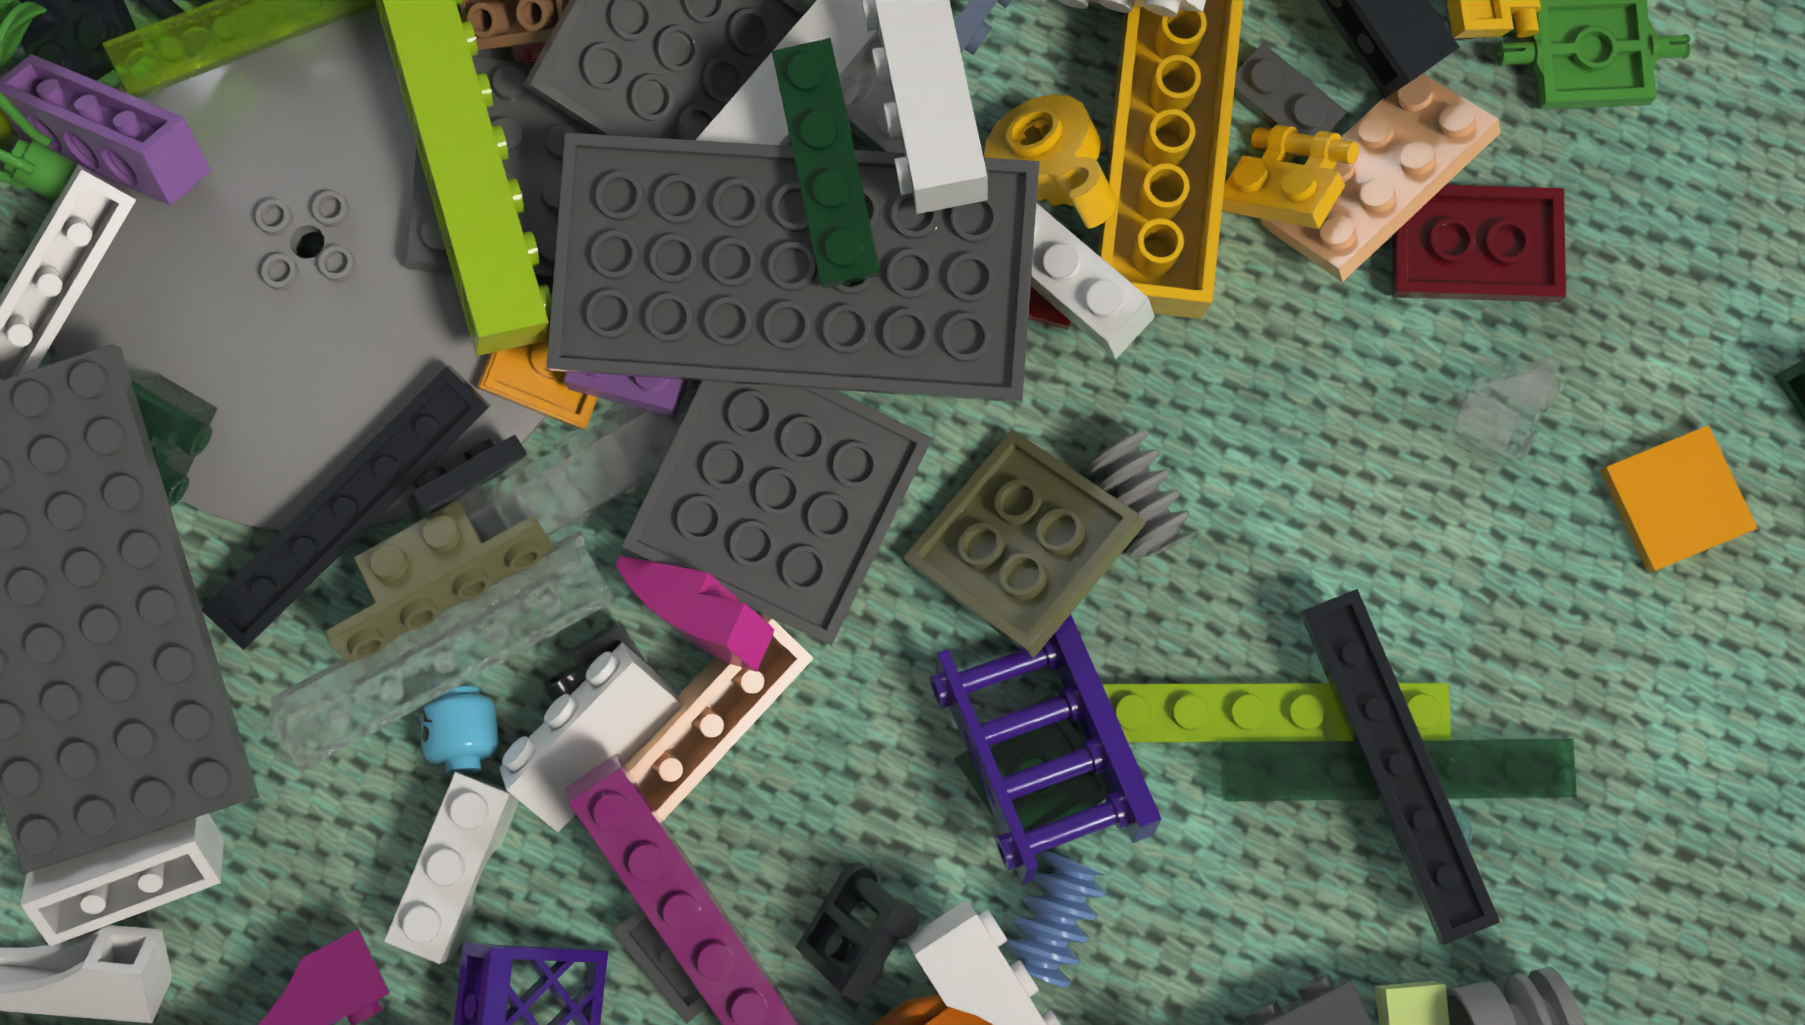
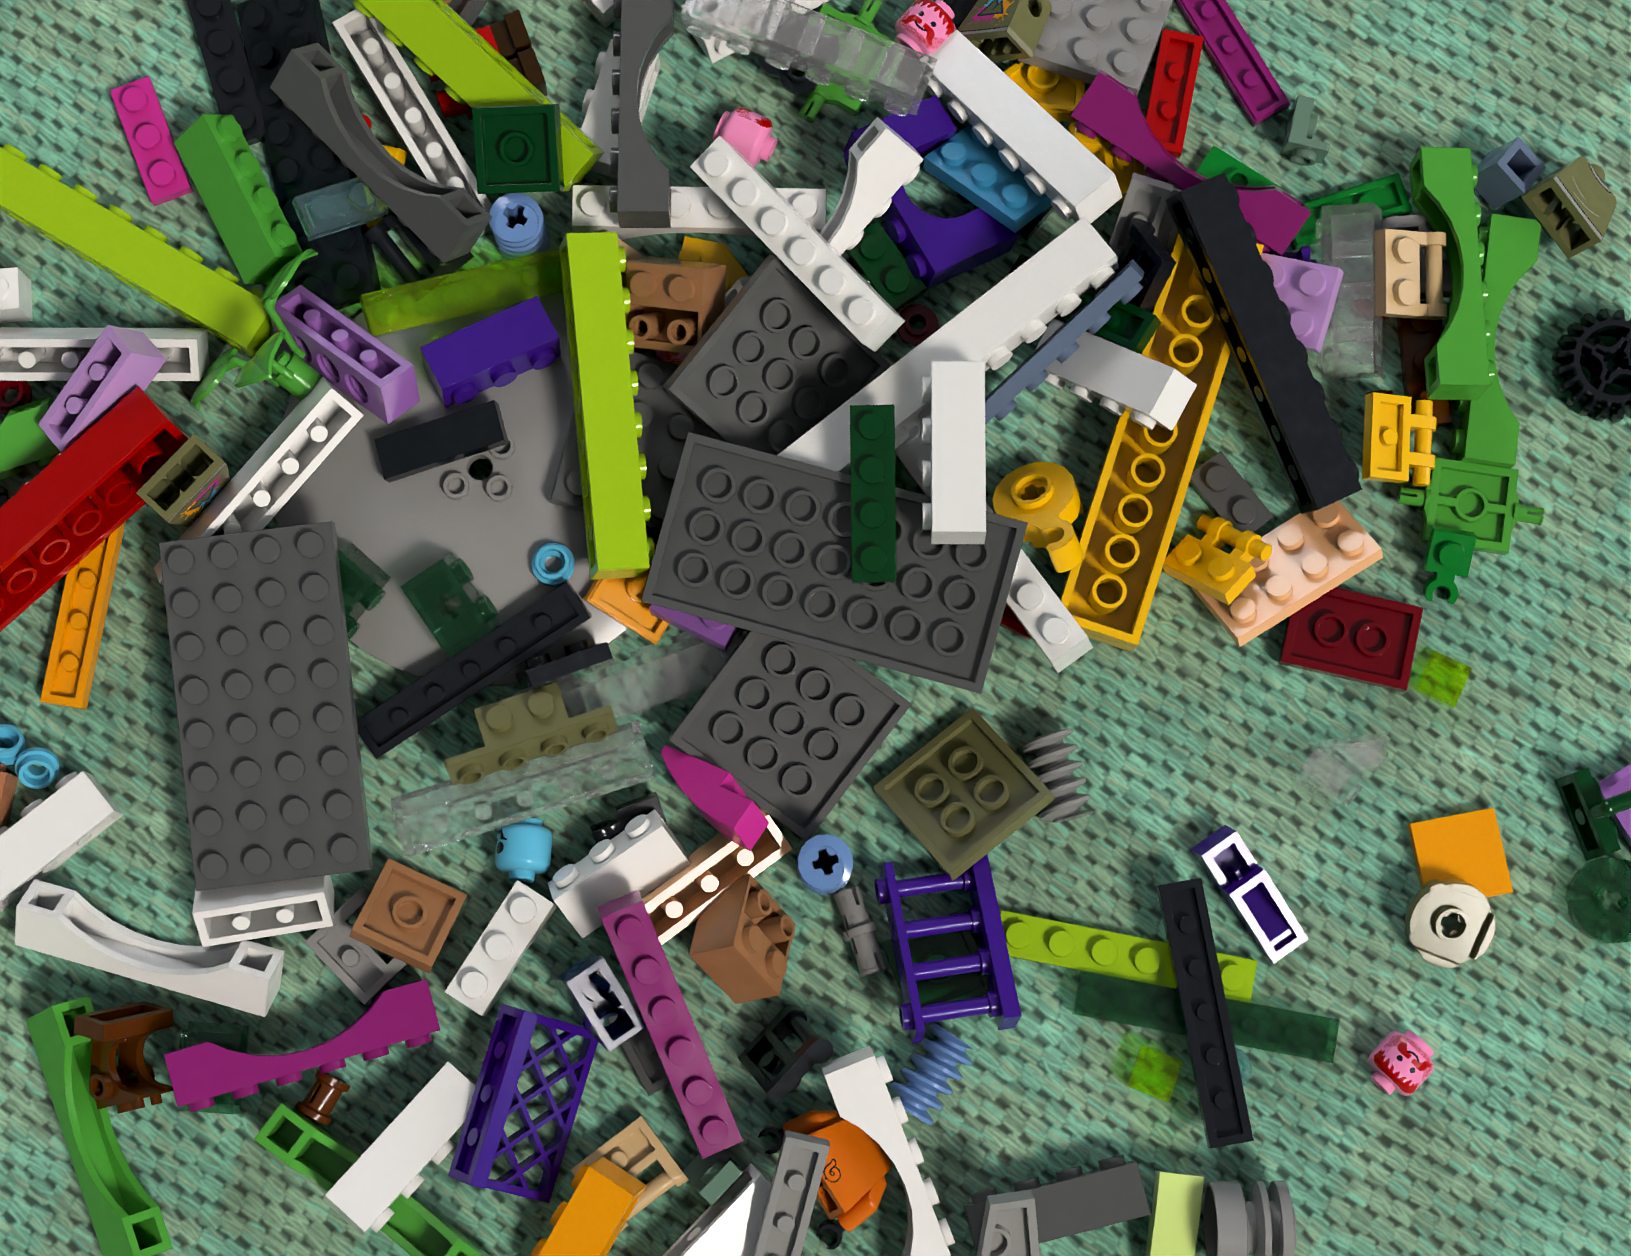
camera: 10 degrees right, 0 degrees up
(247, 215) = (441, 441): none -> black tile
(259, 917) = (350, 960): none -> light grey plate
(269, 419) = (461, 625): none -> clear green brick
(292, 88) = (491, 352): none -> dark purple brick
(320, 849) = (408, 915): none -> medium nougat plate
(421, 331) = (543, 554): none -> medium azure plate
(591, 909) = (597, 996): none -> torso
(773, 794) = (744, 942): none -> medium nougat slope
(870, 649) = (834, 850): none -> medium blue piece
(924, 749) = (860, 932): none -> light grey pin
(1346, 858) = (1154, 1073): none -> clear neon green plate
(1420, 597) = (1249, 893): none -> dark purple slope
(1580, 116) = (1447, 555): none -> green plate
(1605, 275) = (1442, 679): none -> clear neon green tile
(1656, 579) = (1459, 945): none -> plate
(1664, 779) = (1401, 1063): none -> bright pink head

